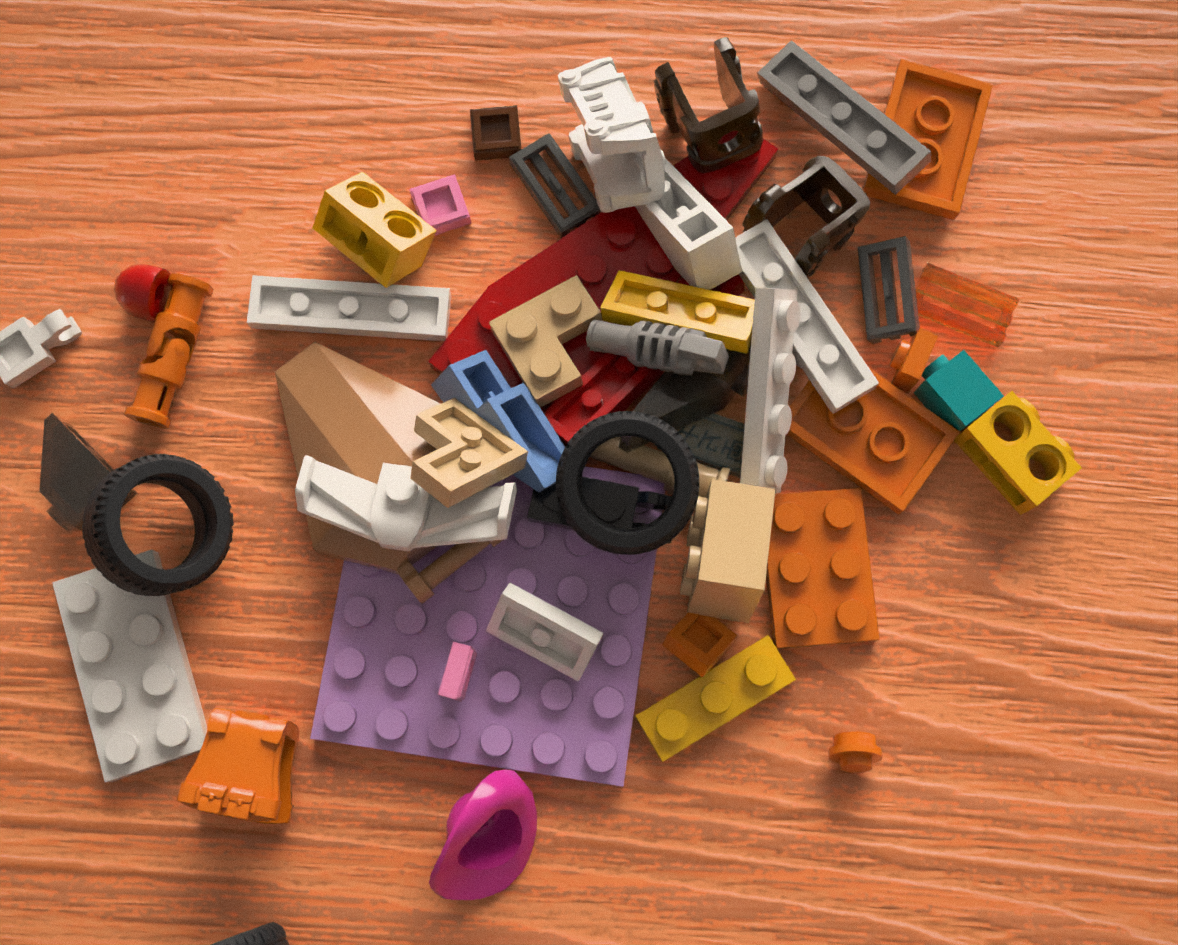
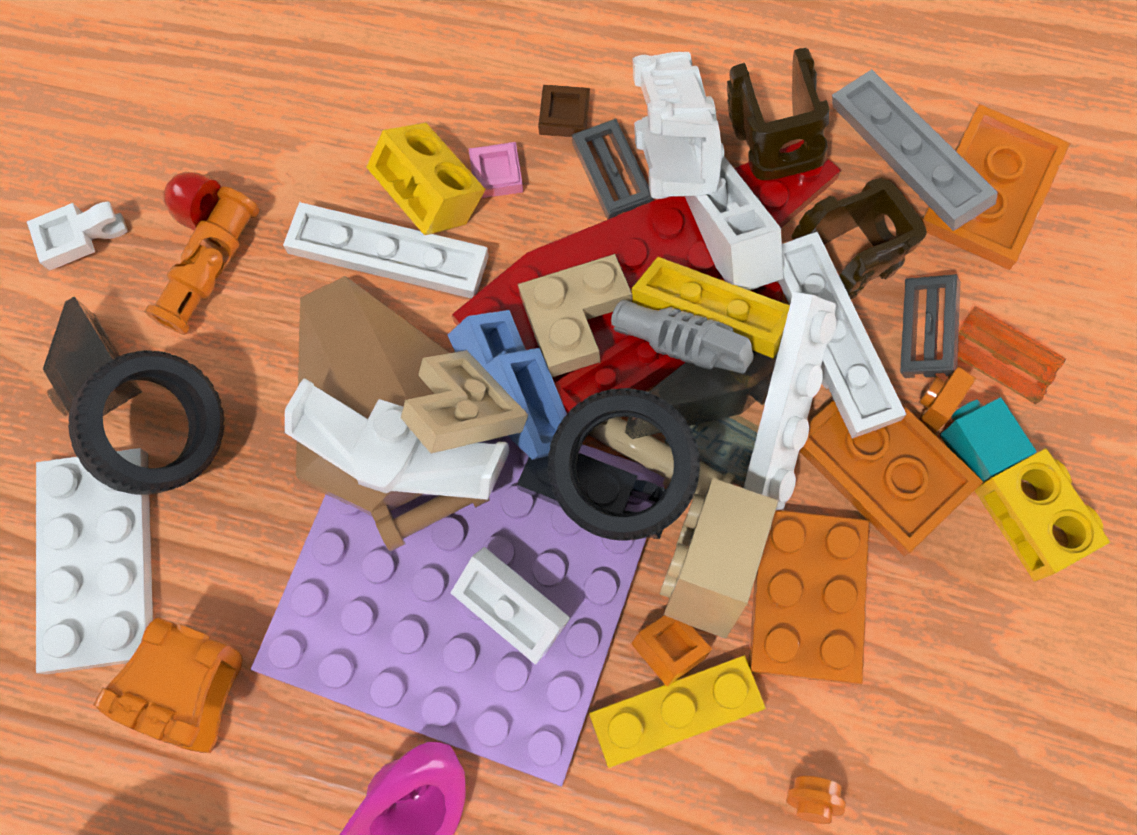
camera: 15 degrees right, 5 degrees down
(458, 672) = (412, 629): bright pink tile -> none

